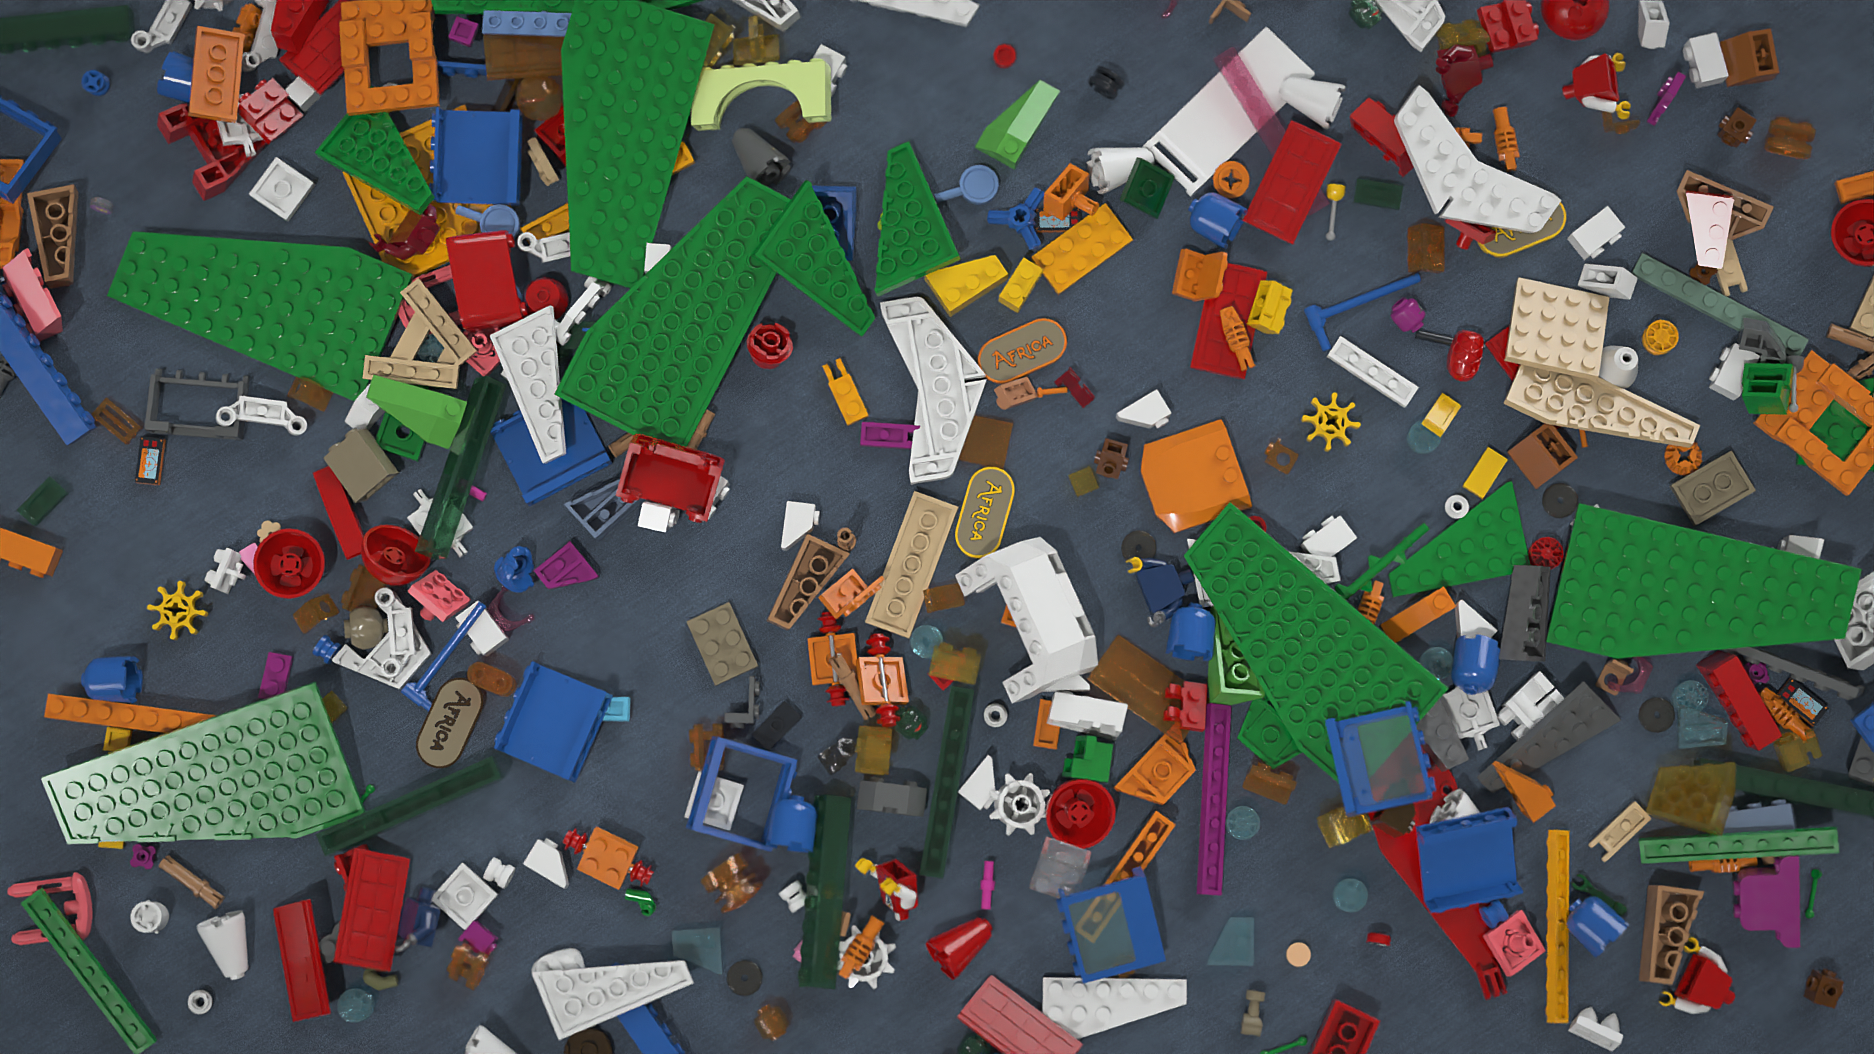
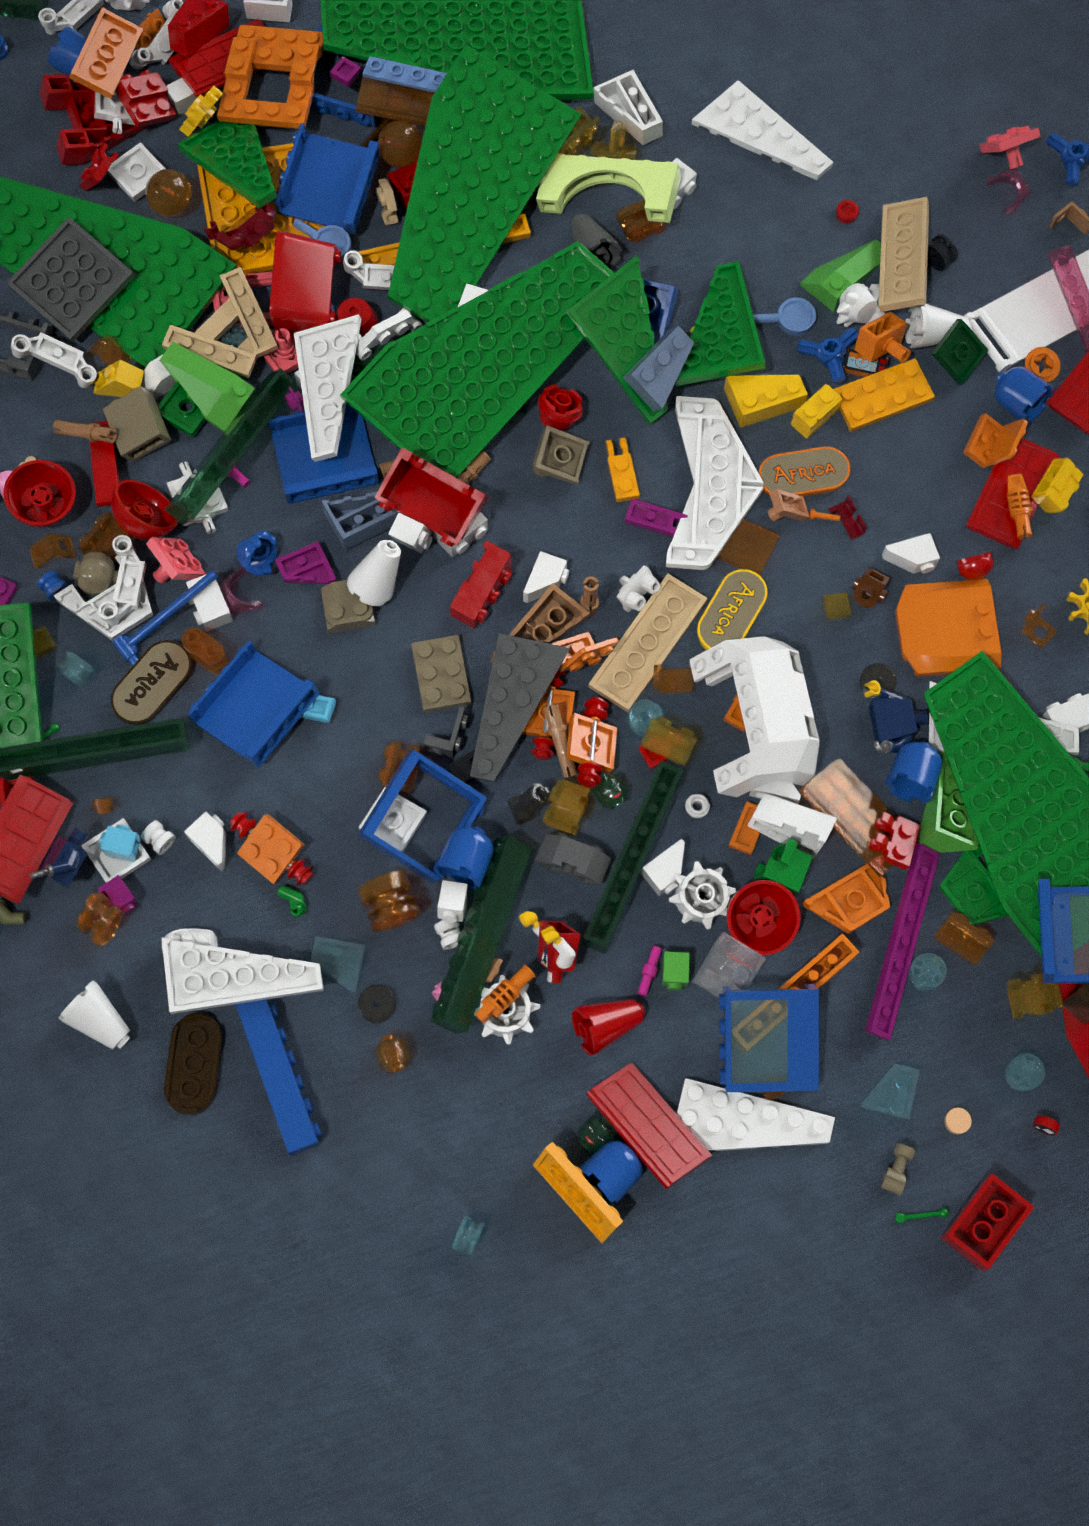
camera: 10 degrees right, 10 degrees down
(244, 201) = (93, 174): none -> red plate
(252, 329) = (70, 279): none -> dark grey plate
(319, 485) = (92, 432): none -> medium nougat pin
(321, 209) = (168, 192): none -> clear orange piece
(329, 111) = (200, 111): none -> yellow gear
(329, 422) = (118, 379): none -> yellow slope
(374, 729) = (75, 669): none -> clear light blue wheel
(438, 854) = (103, 805): none -> clear orange plate
(466, 889) = (120, 843): none -> medium azure brick
(509, 405) = (294, 400): none -> magenta plate
(615, 597) = (343, 609): none -> dark tan slope
(635, 567) = (376, 574): none -> white cone
(740, 550) = (482, 586): none -> red wedge
(781, 394) = (559, 455): none -> dark tan slope
(791, 871) = (452, 901): none -> white slope
(797, 650) = (515, 687): none -> dark grey wing
(858, 284) = (659, 368): none -> sand blue wedge
(886, 514) = (636, 587): none -> white hips
(1011, 880) = (675, 970): none -> bright green brick
(1043, 160) = (859, 304): none -> white head
(1070, 97) = (904, 254): none -> tan plate
(1207, 409) = (976, 566): none -> red hair

